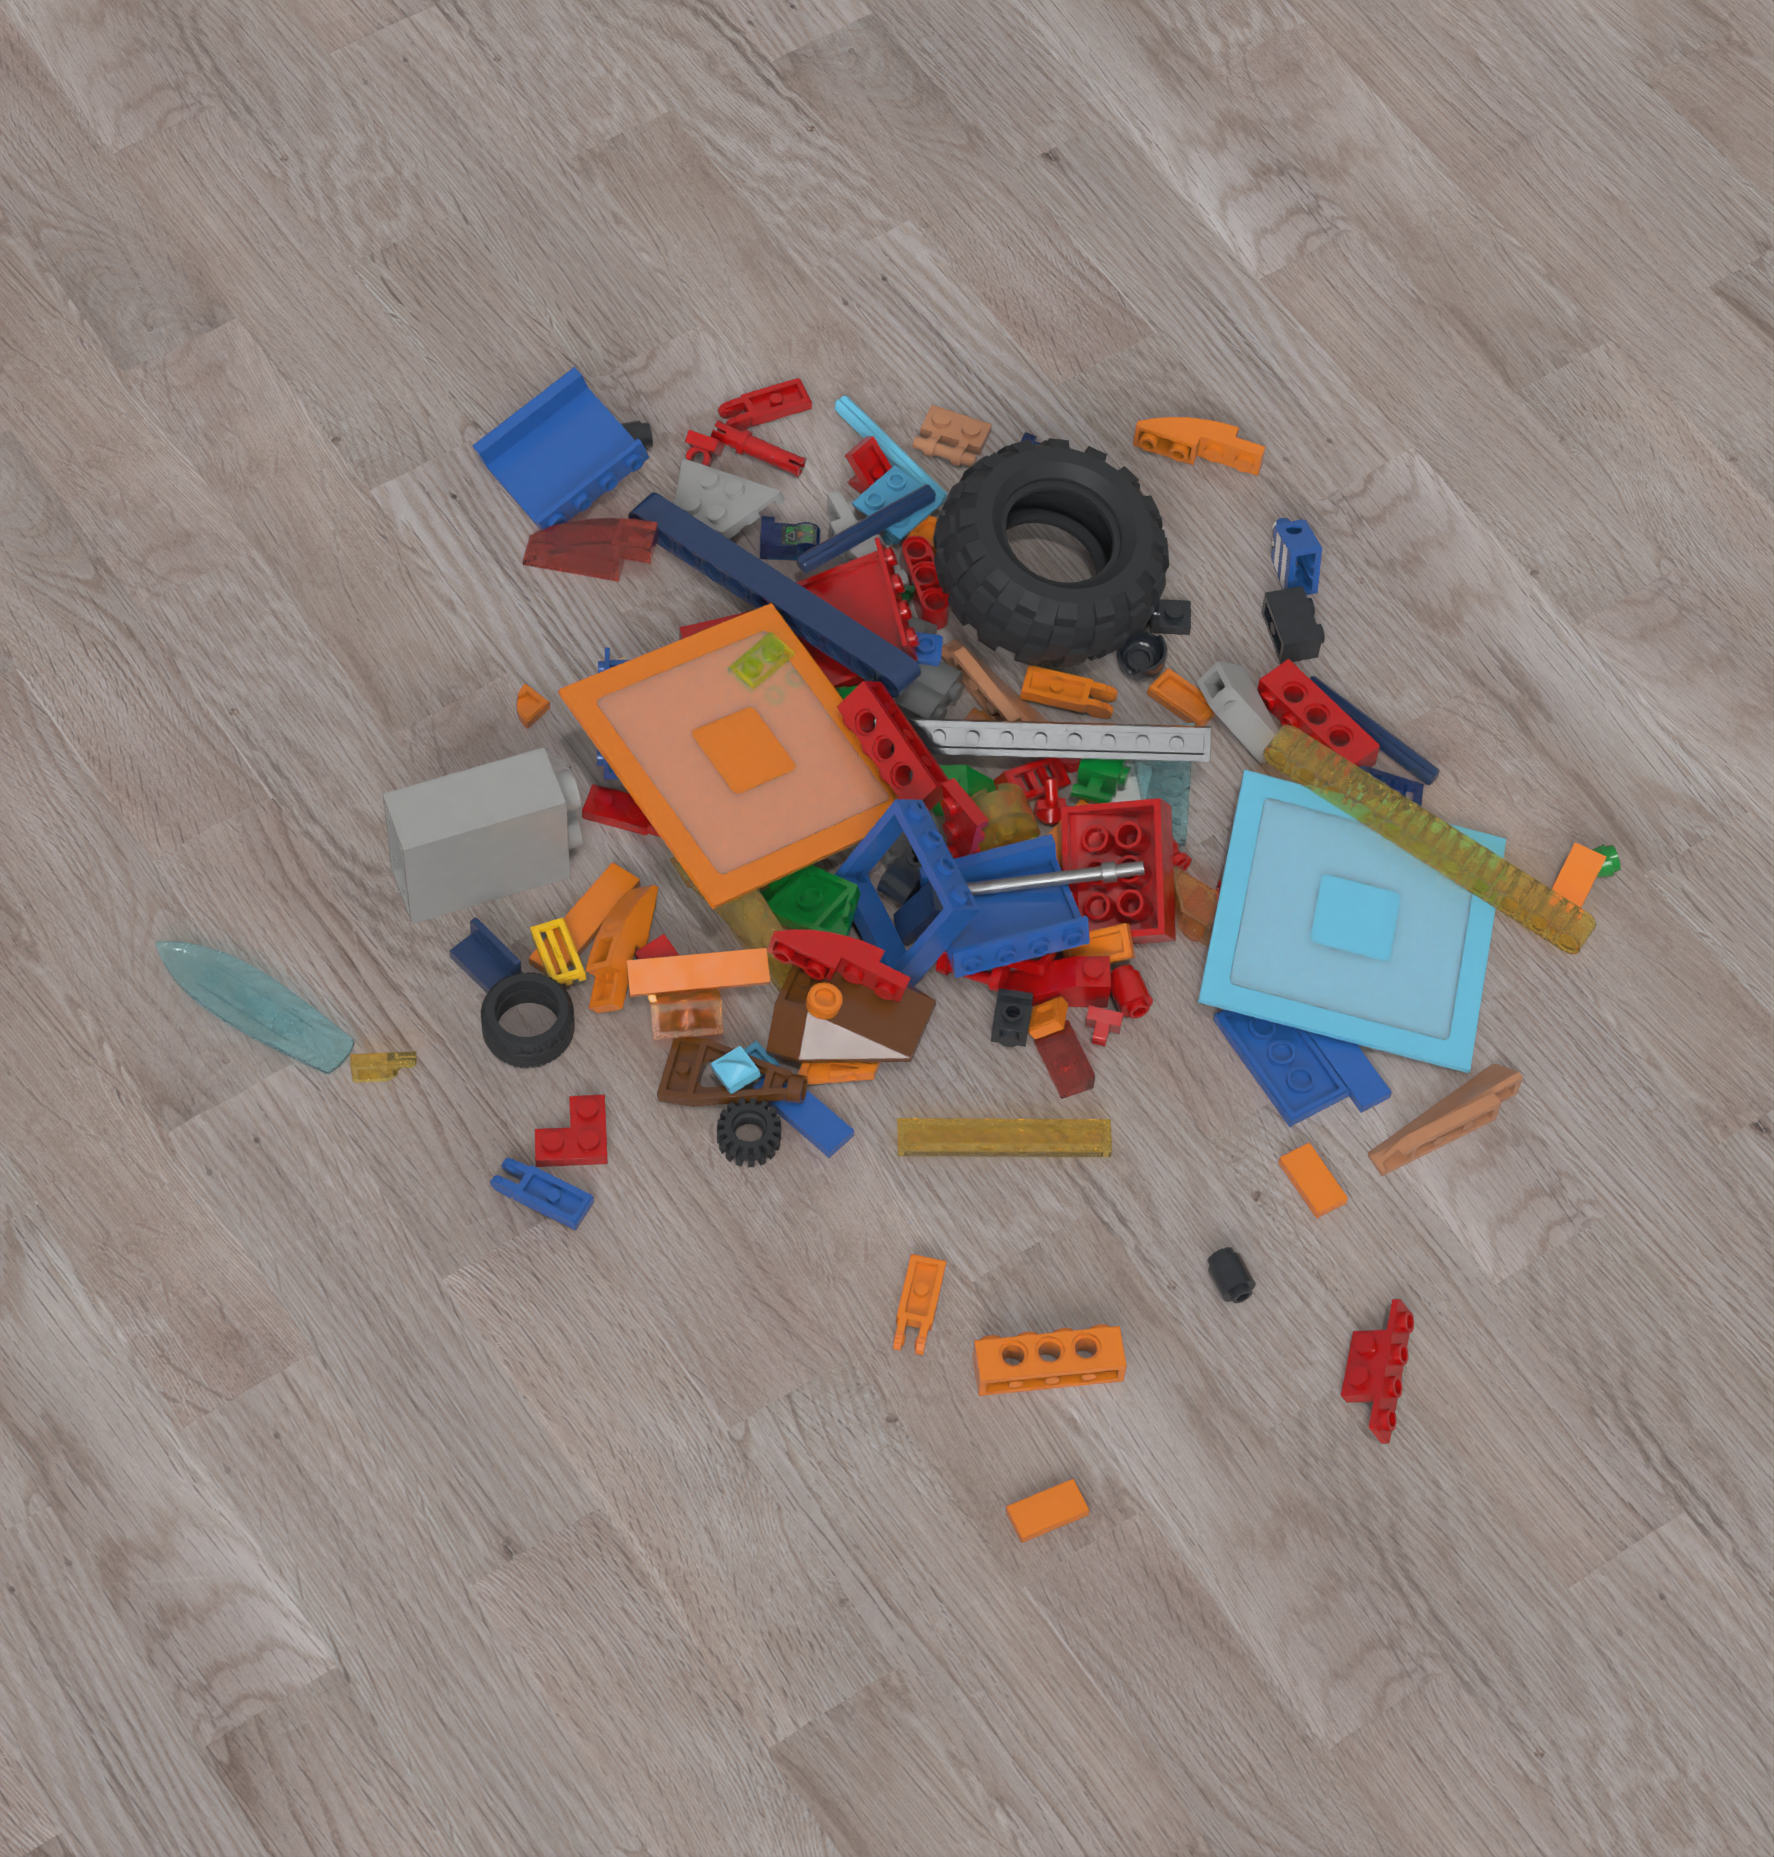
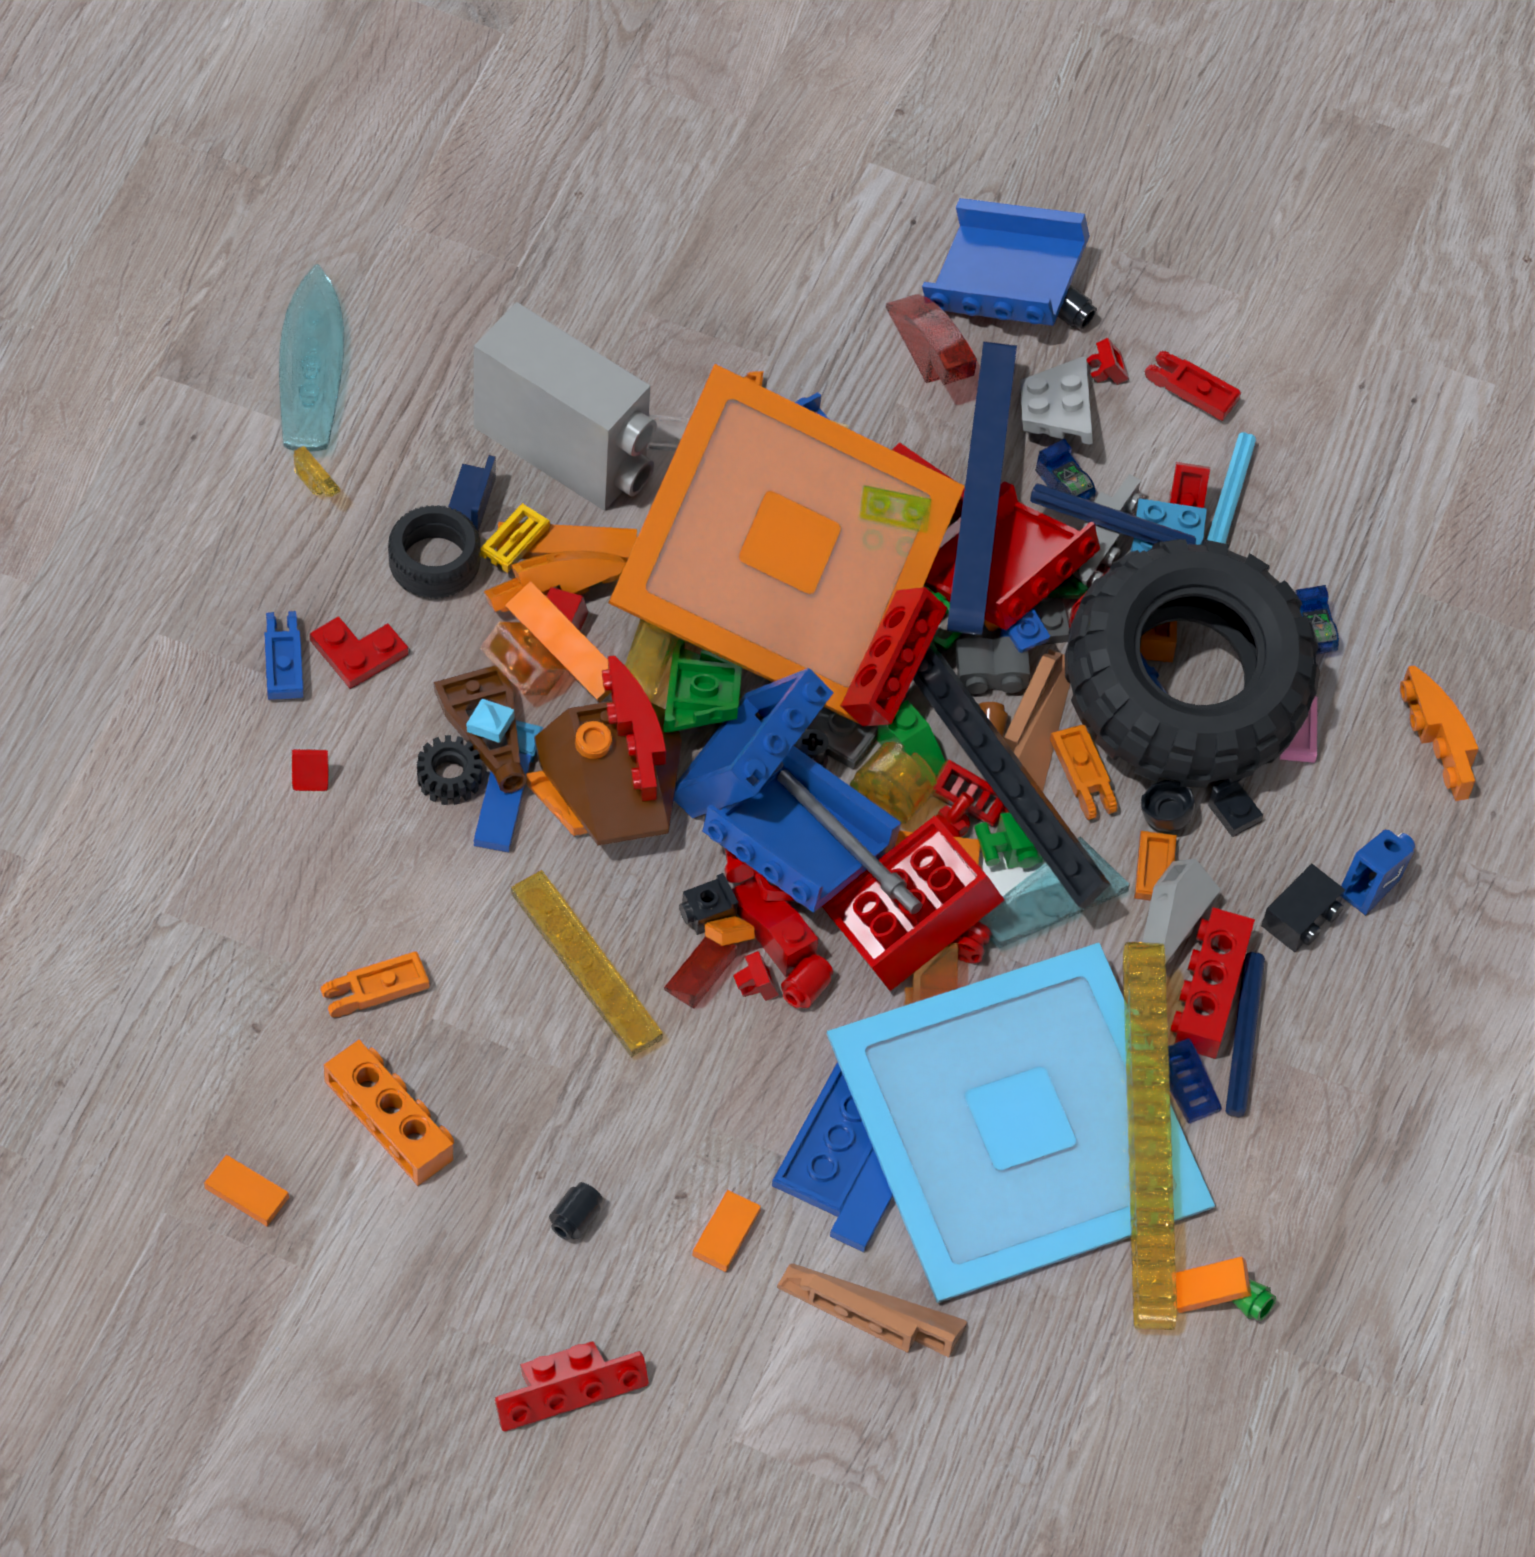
camera: 55 degrees right, 0 degrees up
(674, 1236) = (310, 770): none -> red slope
(758, 448) = (1140, 392): red pin -> none
(953, 430) = (1293, 537): nougat plate -> none
(962, 820) = (853, 742): red wing -> none
(1109, 941) = (834, 933): orange tile -> none

